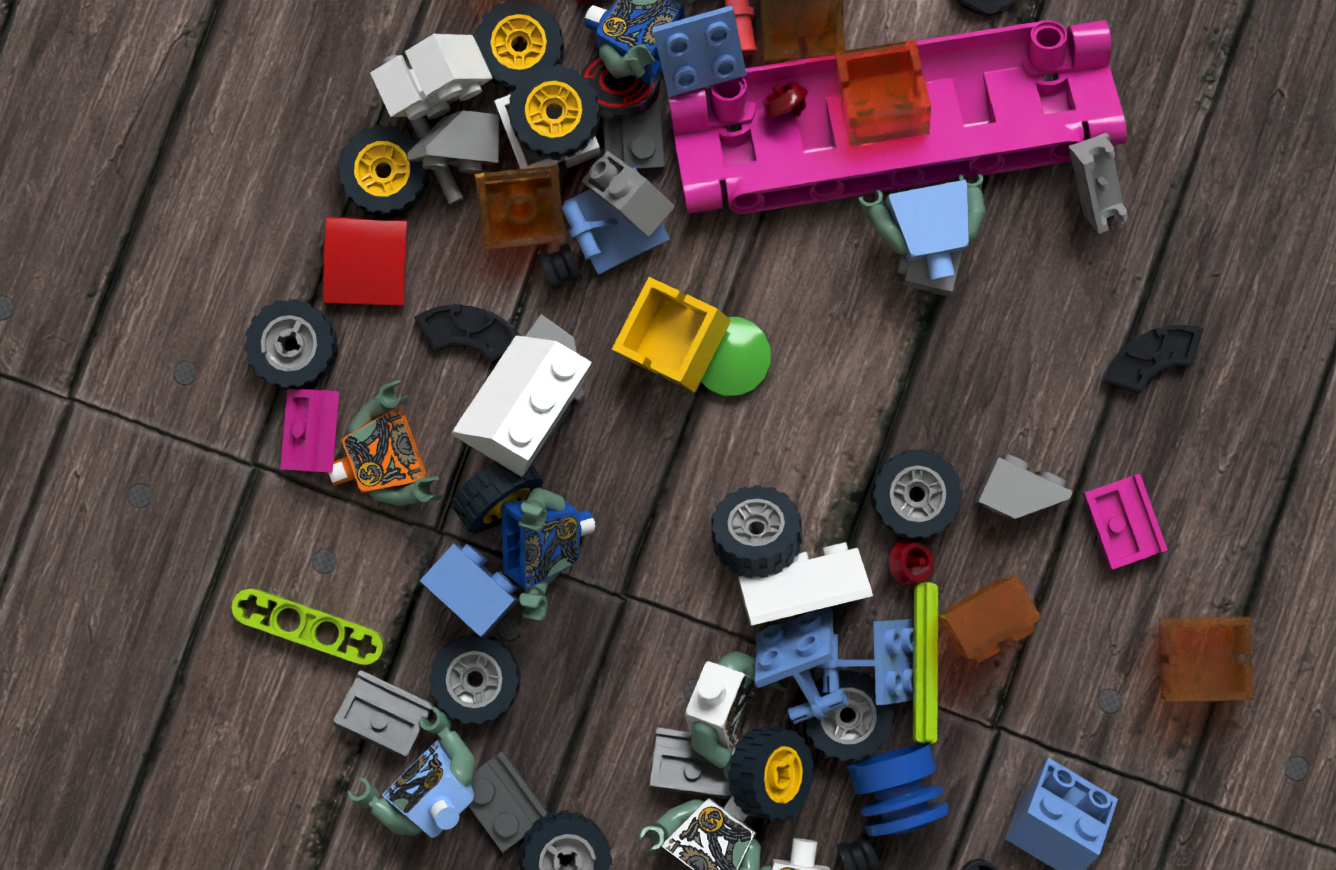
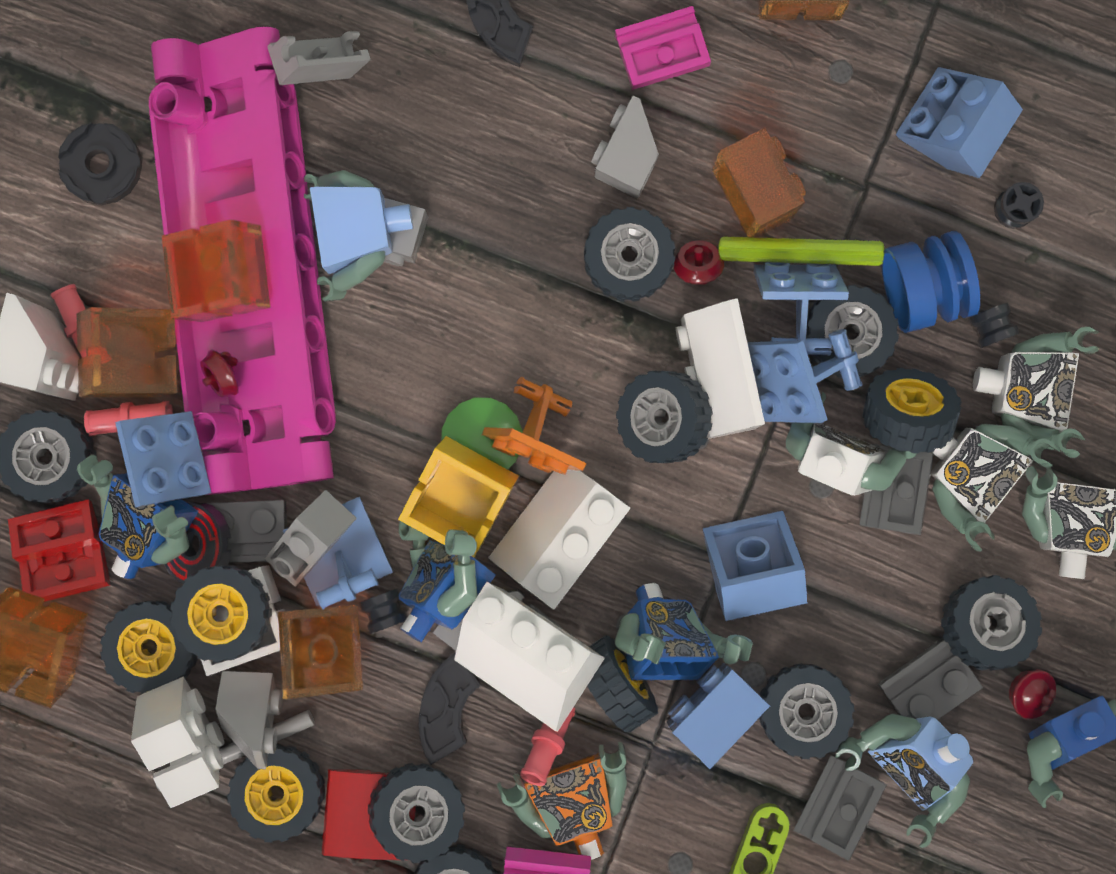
camera: 90 degrees left, 0 degrees up
(350, 317) = (428, 833): none -> black wheel
(434, 426) = (545, 747): none -> coral pin
(591, 320) = (442, 580): none -> torso
(614, 625) = (755, 565): none -> medium blue slope
(639, 433) = (558, 534): none -> white slope
(726, 399) = (527, 443): none -> orange plate

